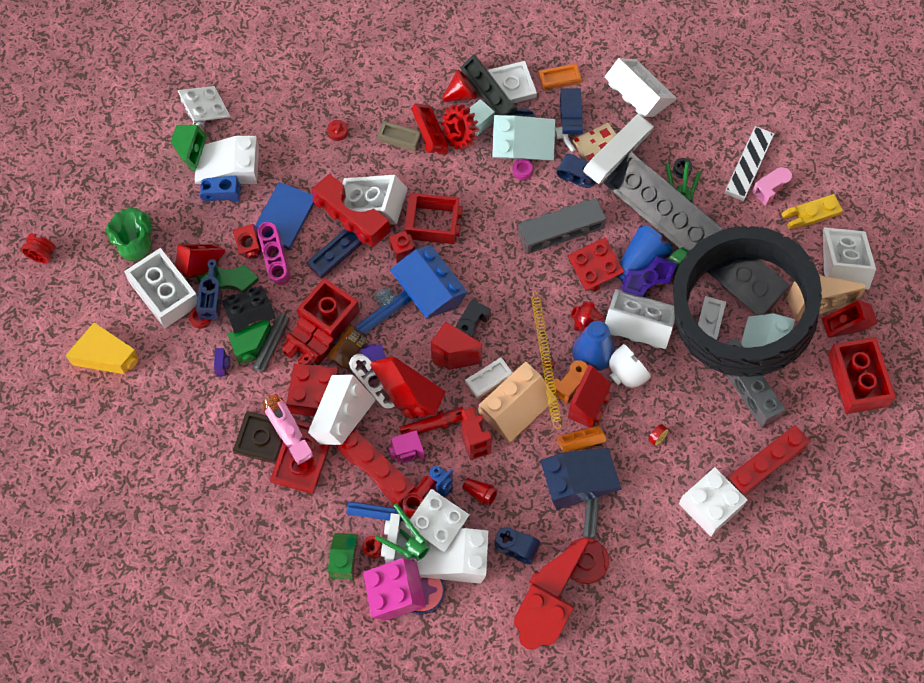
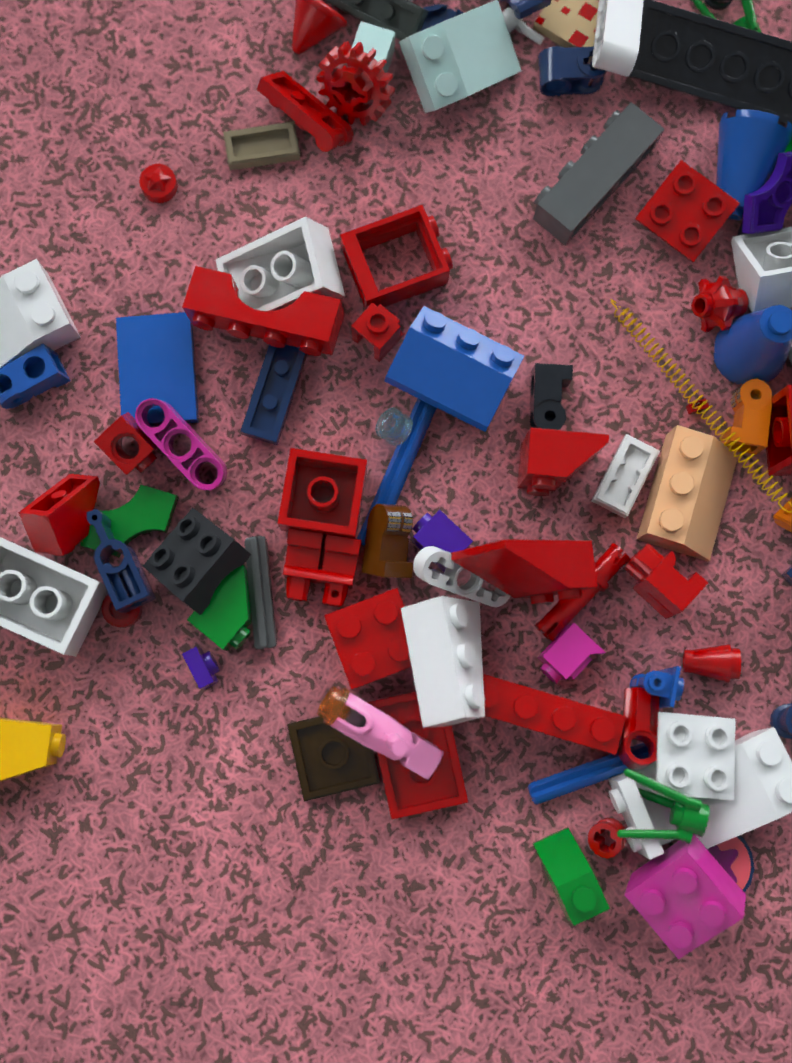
camera: 35 degrees left, 15 degrees up
(522, 169) = (483, 109): dark pink tile -> none

